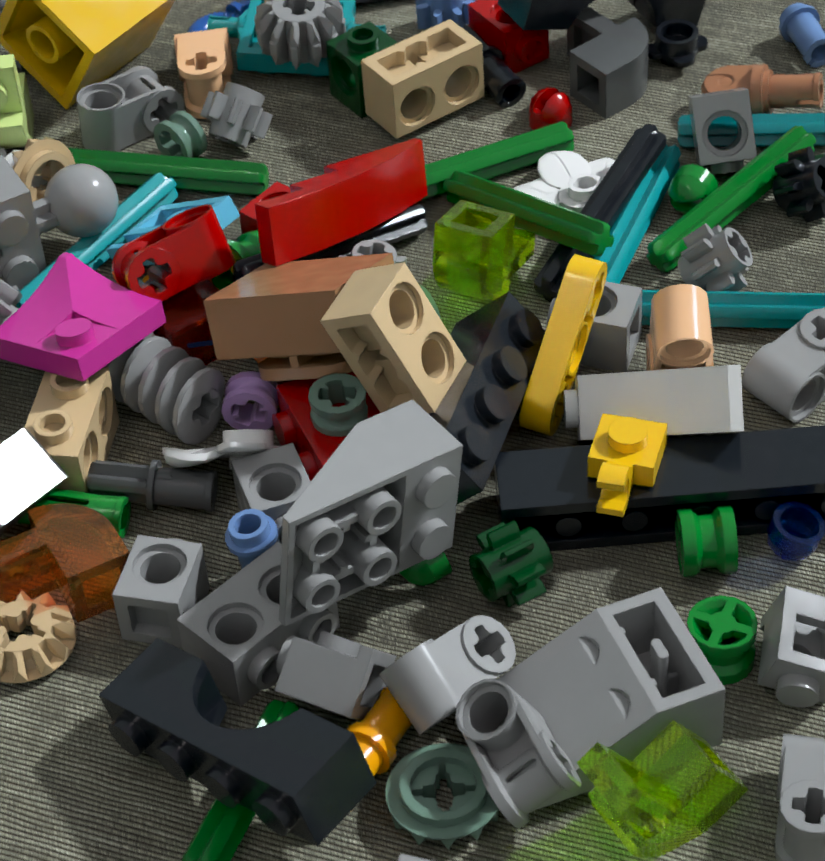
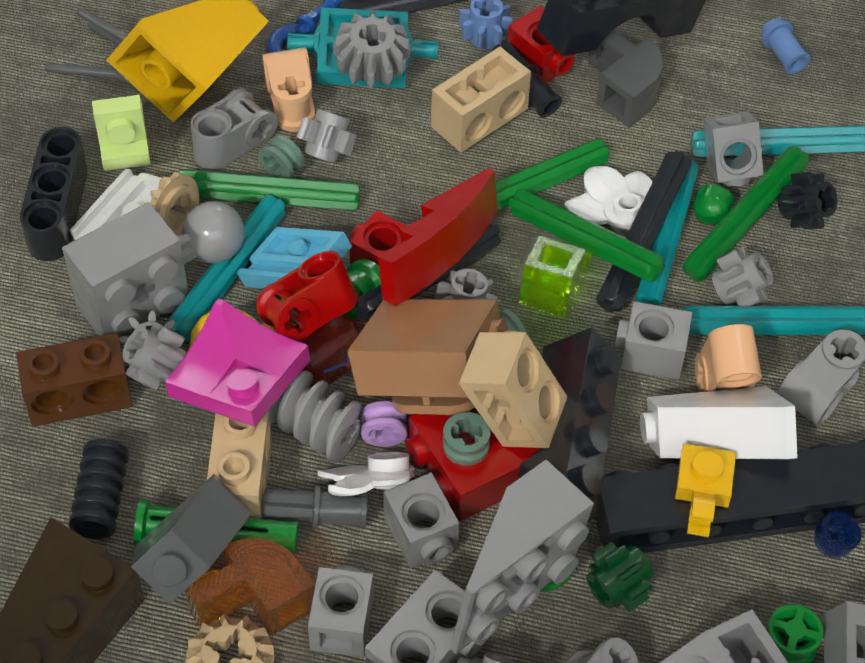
camera: 10 degrees left, 10 degrees up
(250, 535) = (411, 566): medium blue pin -> none
(344, 62) = (416, 81): dark green brick -> none
(549, 107) = (590, 128): red hinge -> none
(563, 344) = (638, 369): yellow beam -> none
(677, 43) = (681, 55): black plate -> none
(706, 541) = (770, 548): green wheel -> none
(767, 89) = (761, 104): nougat arm -> none

